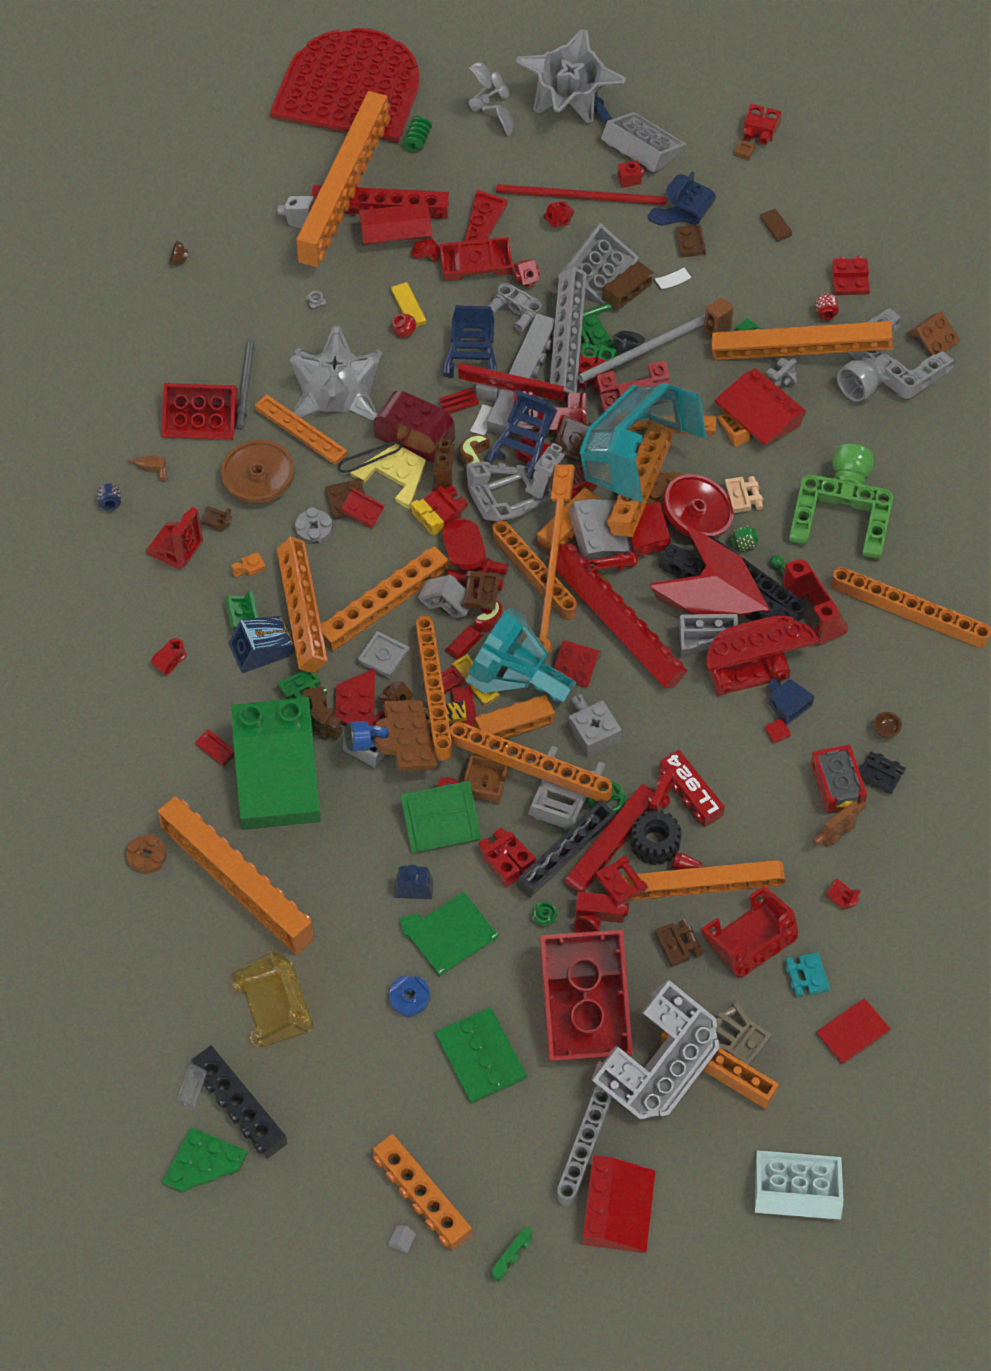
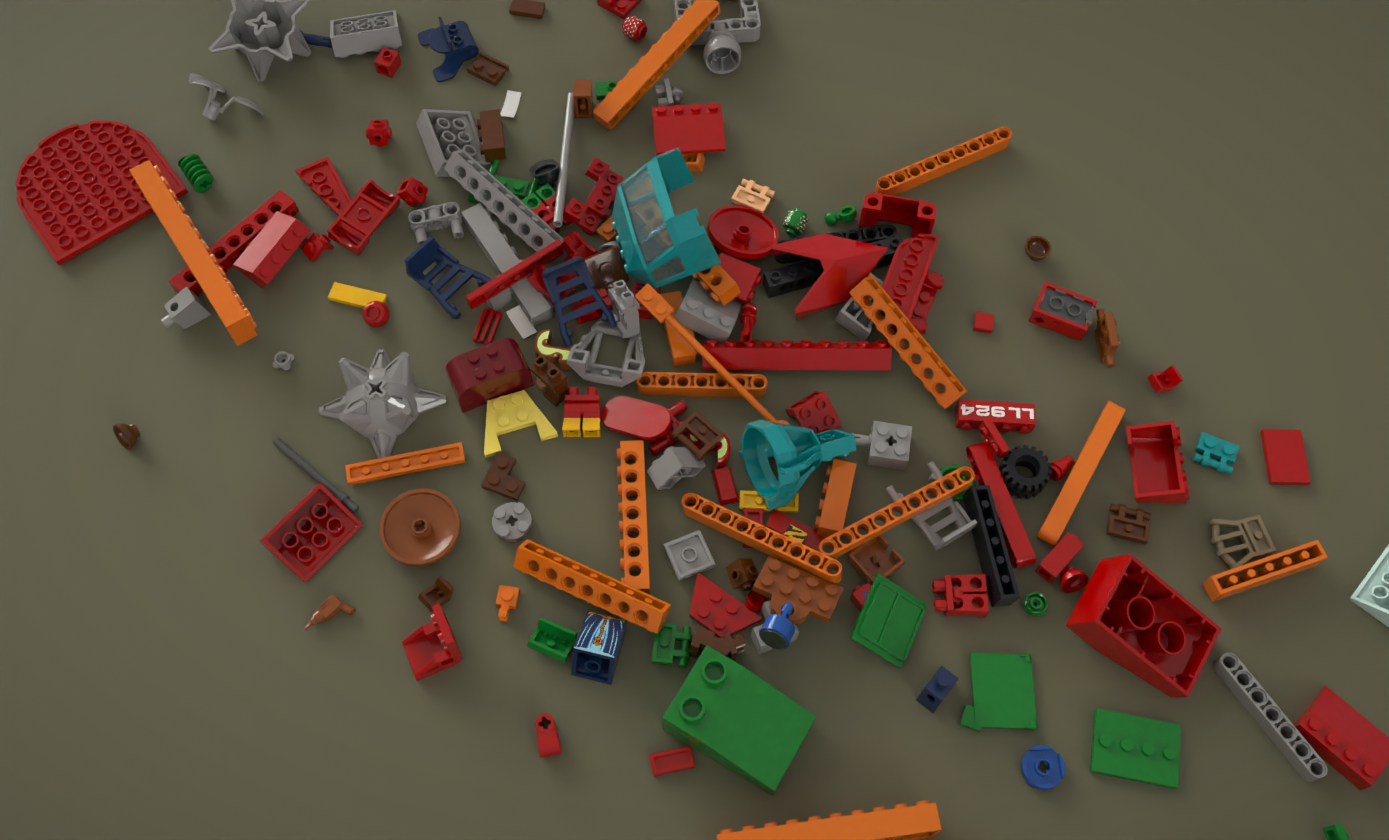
camera: 55 degrees left, 5 degrees up
(109, 497) = (331, 672): dark blue head -> none
(362, 508) = (530, 470): red plate -> none
(371, 450) = (490, 431): black piece -> none
(581, 194) = (371, 107): red piece -> none
(615, 883) = (1054, 530): red plate -> none
(673, 1067) = (1254, 607): light grey slope -> none
(694, 678) = (917, 343): none -> orange brick
(789, 699) = (964, 295): dark blue torso -> none
(851, 467) = (796, 111): bright green piece -> none
(879, 776) = (1077, 283): black plate -> none

